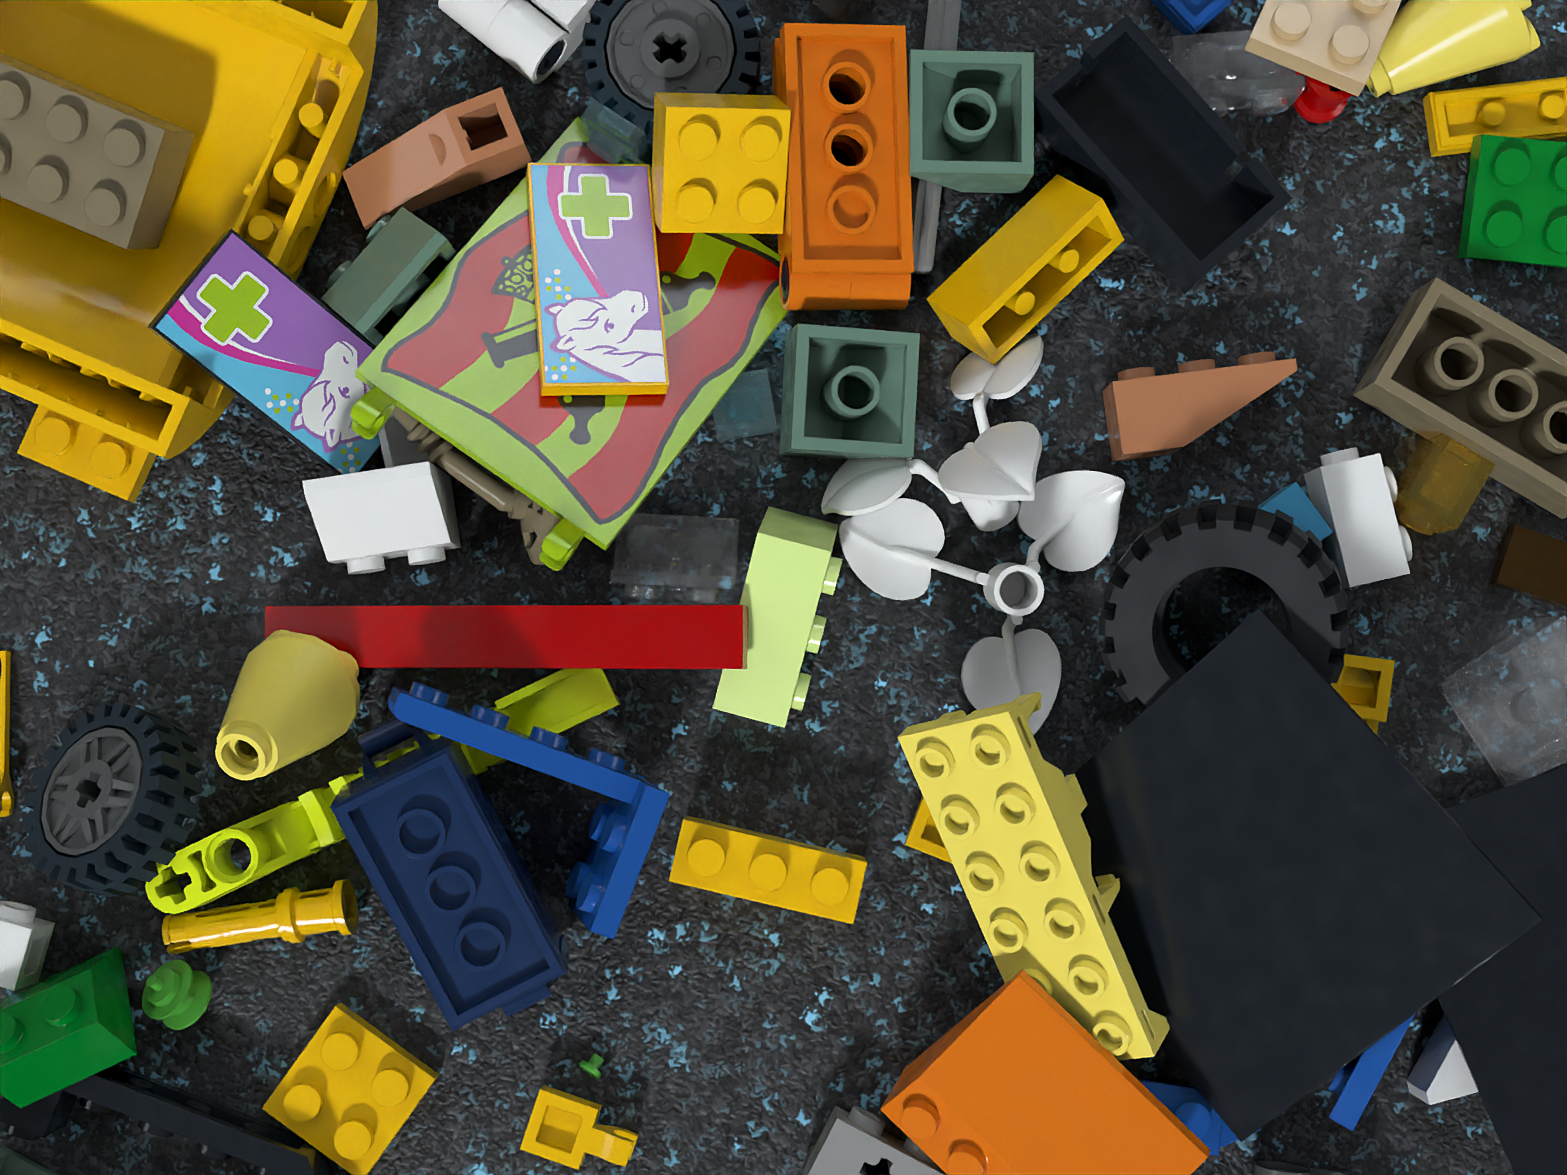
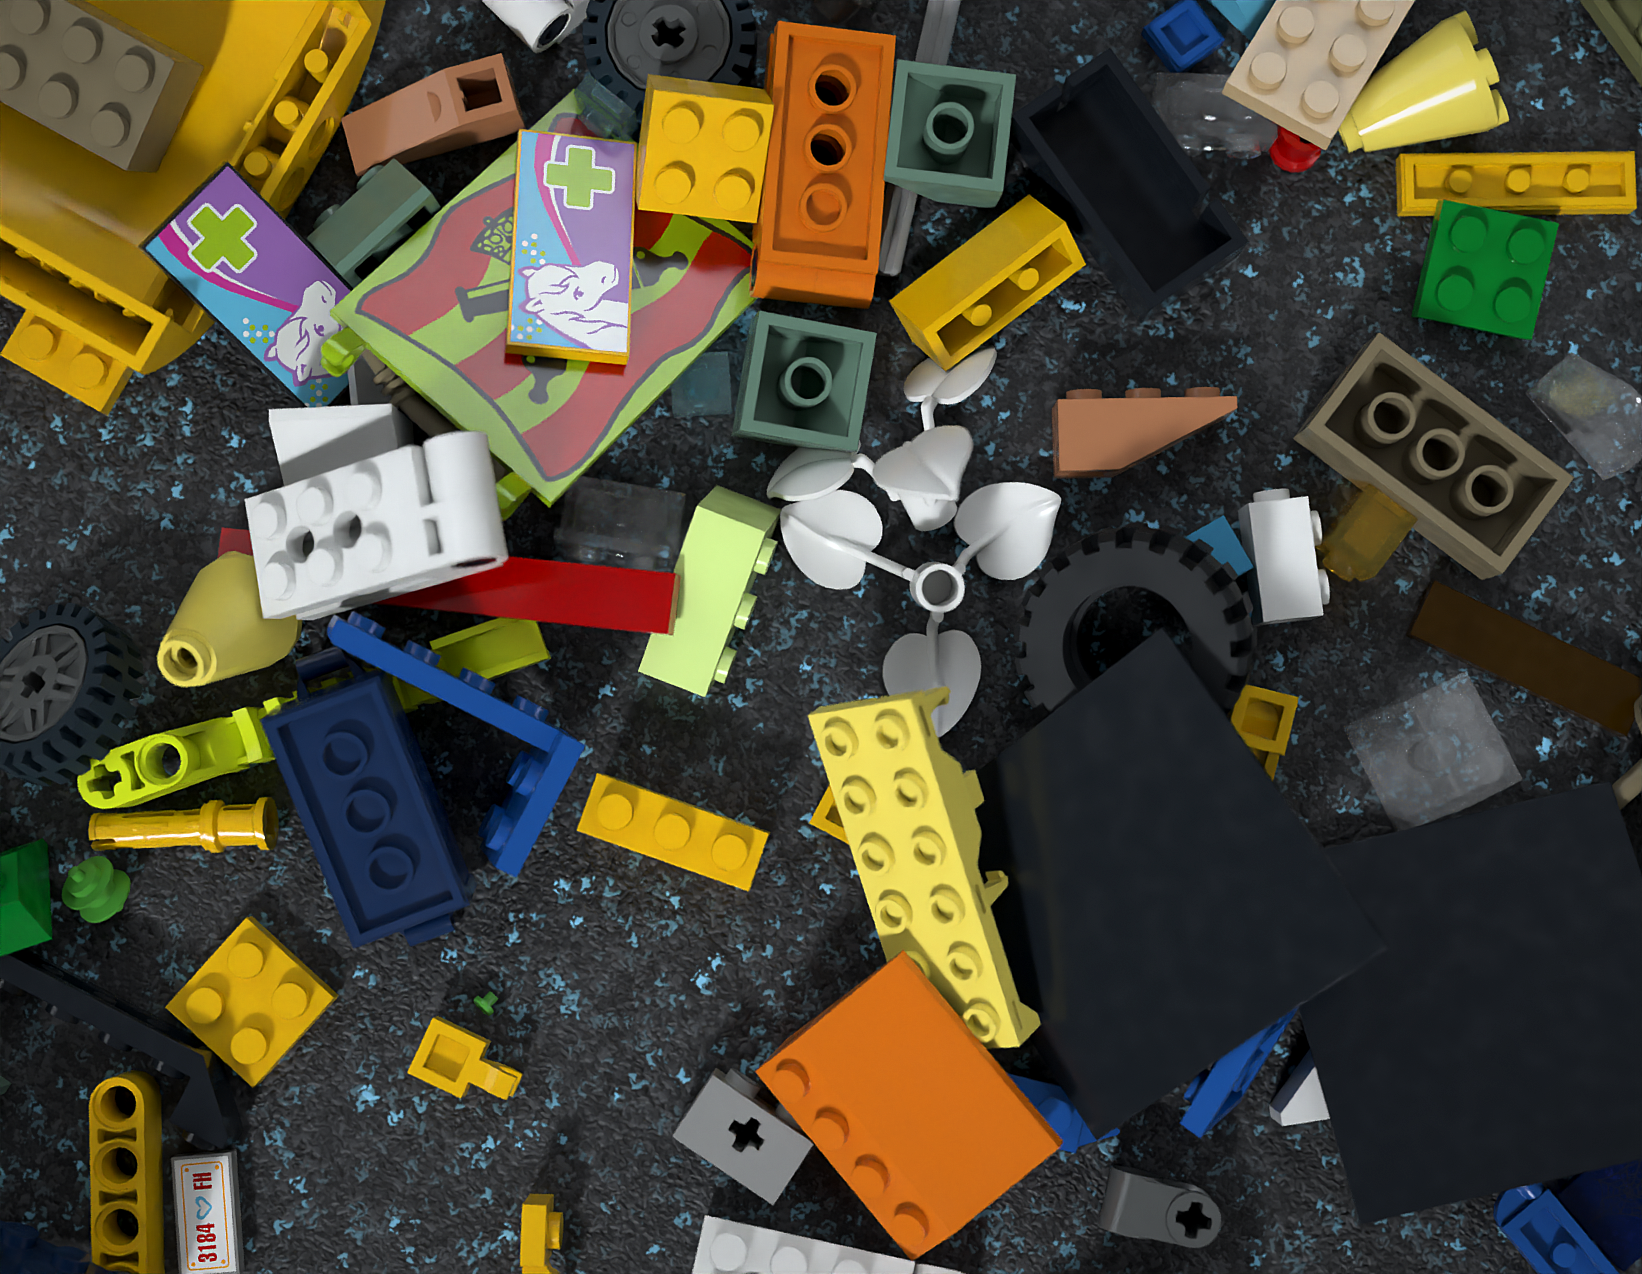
camera: 10 degrees right, 0 degrees up
(430, 592) = (377, 528): none -> white hinge

